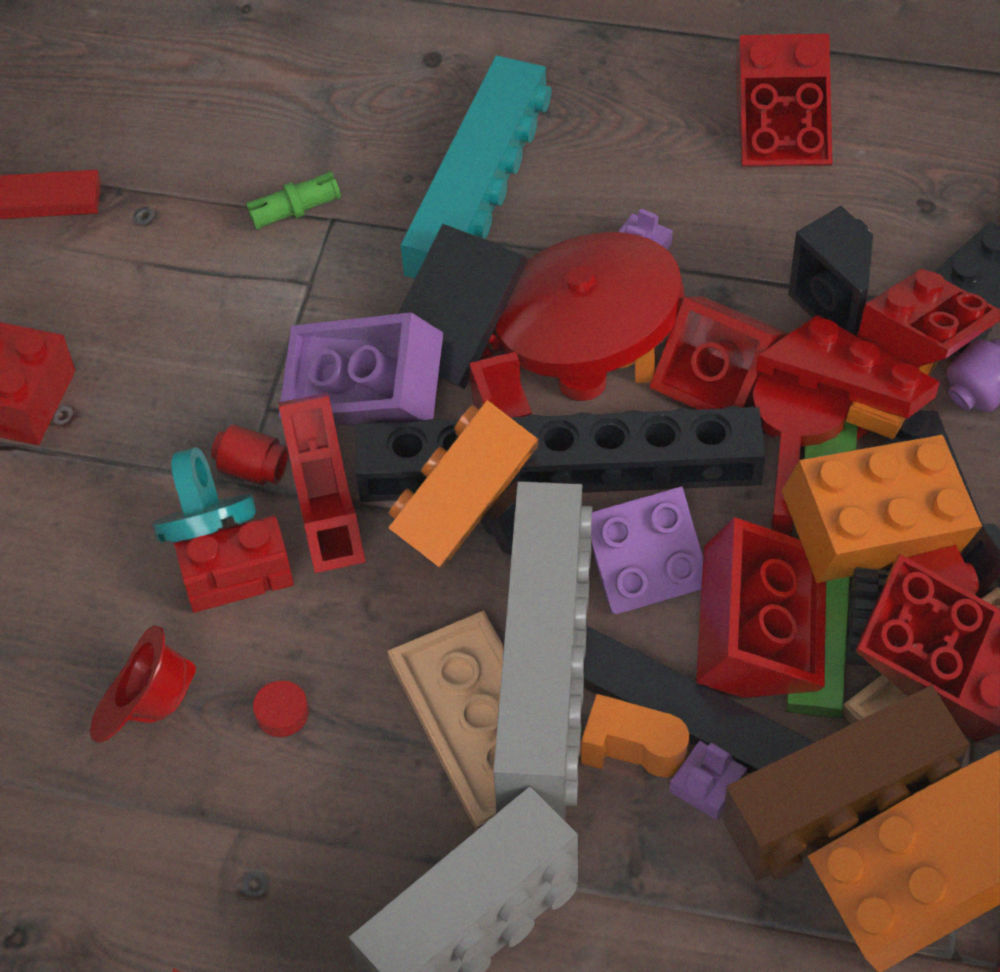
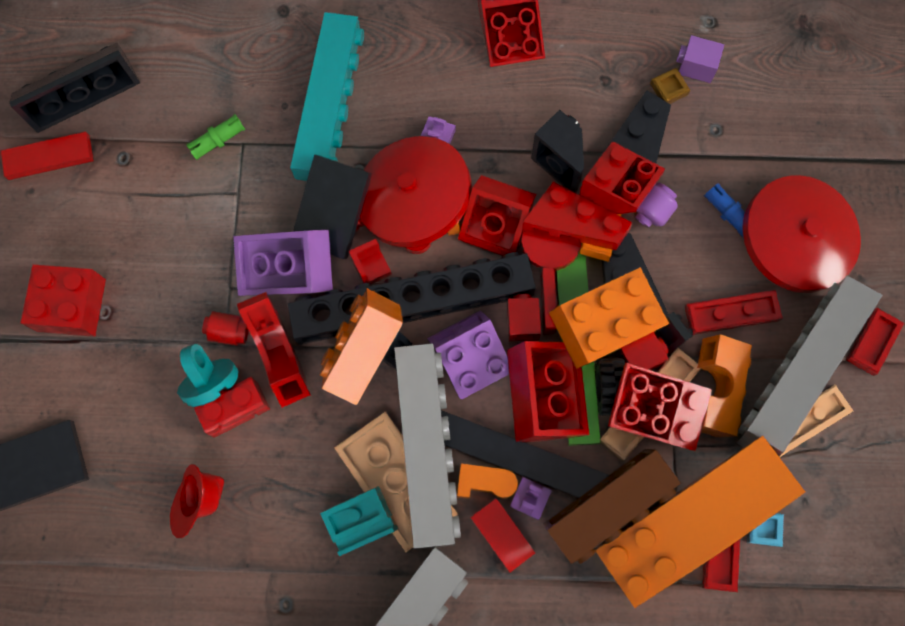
camera: 10 degrees left, 20 degrees up
(98, 110) = (74, 88): none -> black slope
(281, 708) = (279, 494): red tile -> none
(407, 760) = (359, 521): none -> teal plate
(650, 825) = (503, 535): none -> red slope
(738, 494) = (523, 318): none -> red brick

